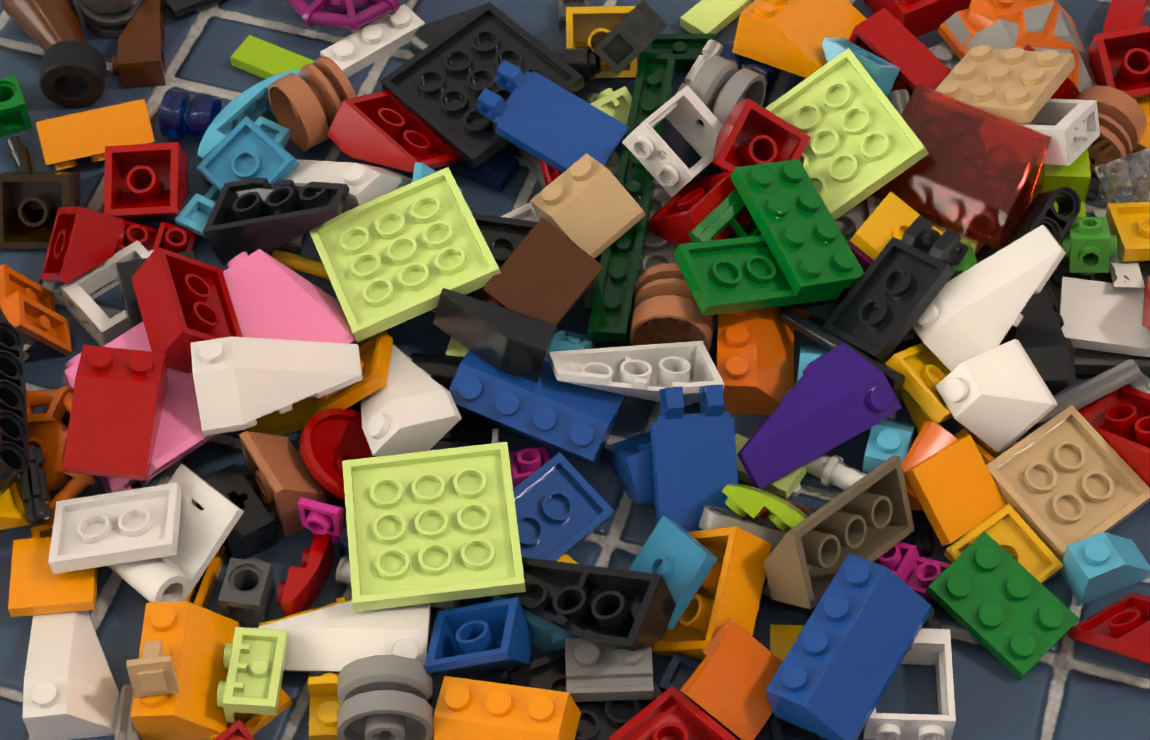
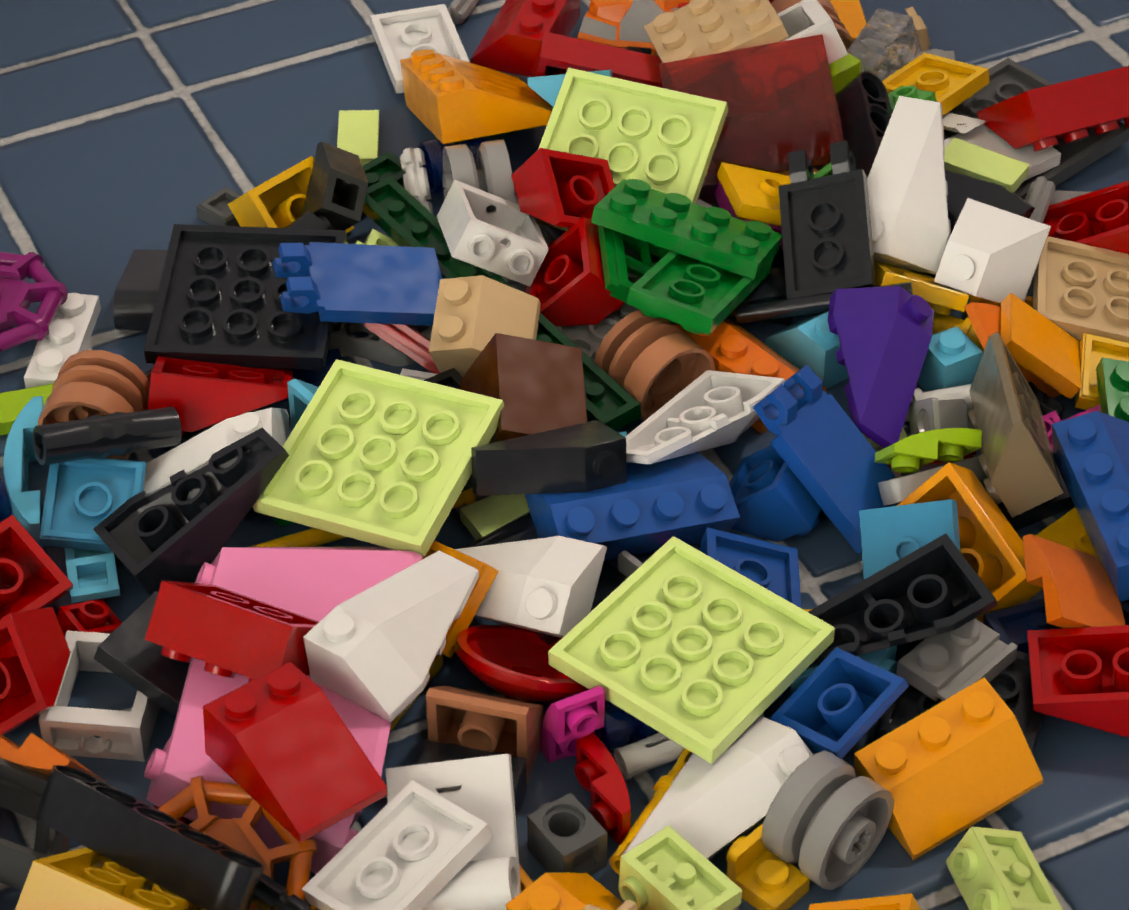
camera: 45 degrees left, 10 degrees down
(281, 126) = (106, 435): none -> black axle
(818, 488) = (937, 414): none -> light grey bracket
(1093, 322) = (984, 164): none -> yellowish green tile

